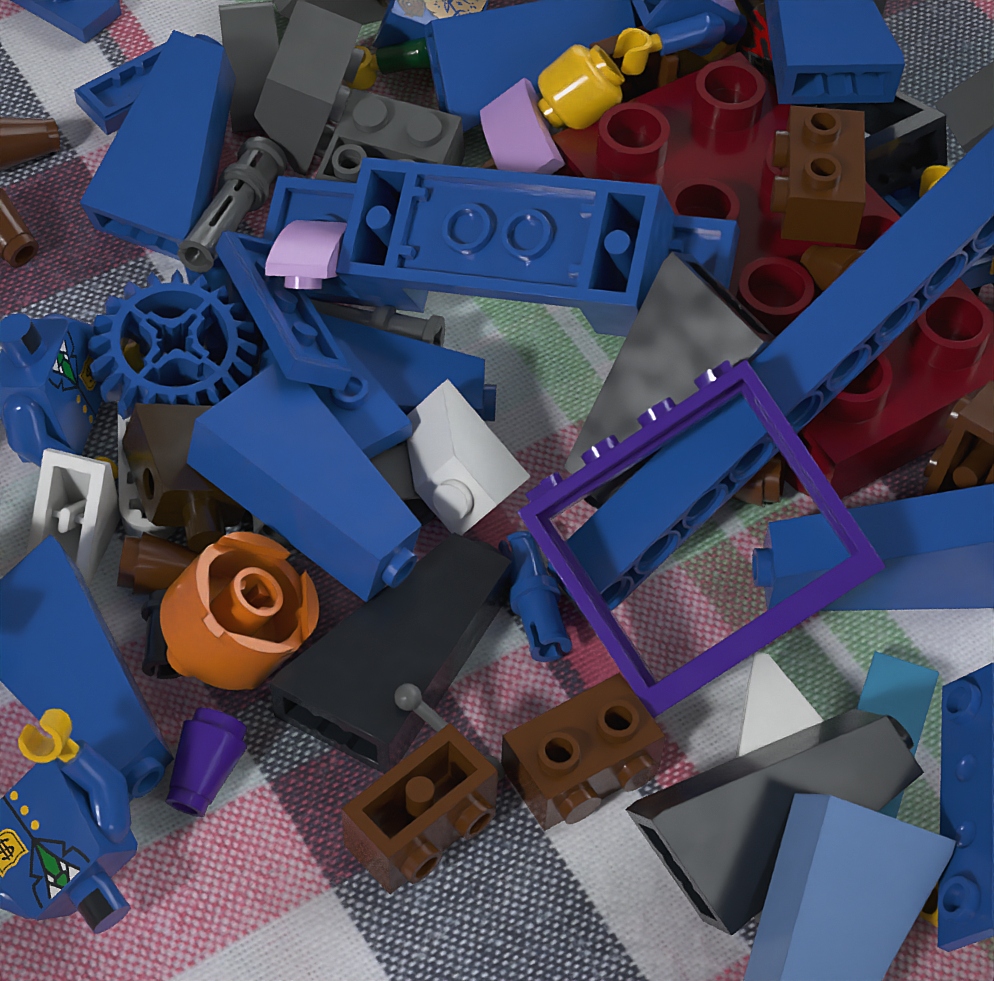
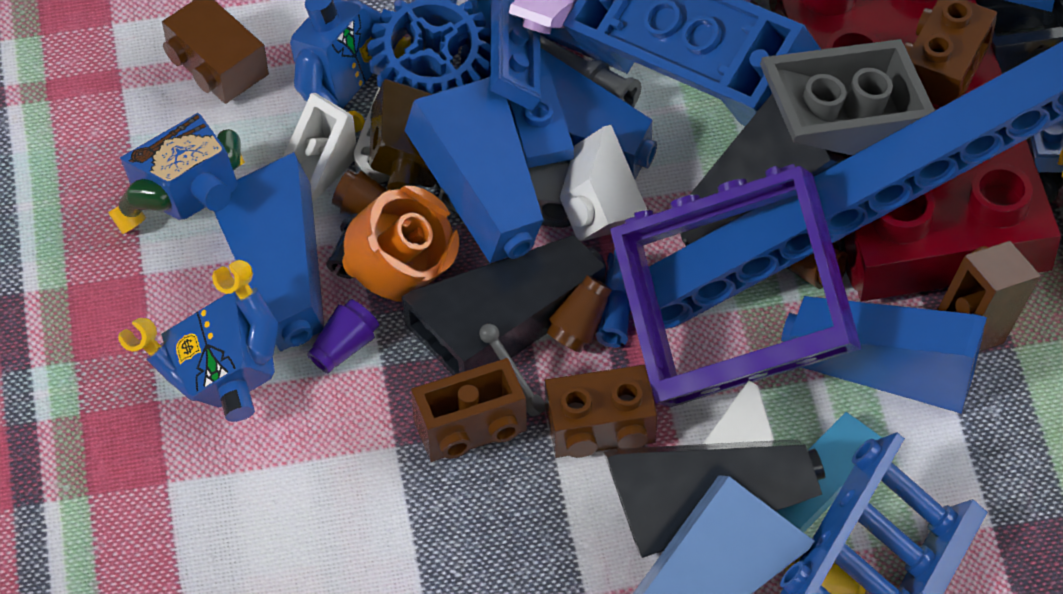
camera: 25 degrees right, 0 degrees up
(503, 633) = (580, 314): none -> reddish brown cone
(756, 254) = (847, 94): none -> dark grey slope

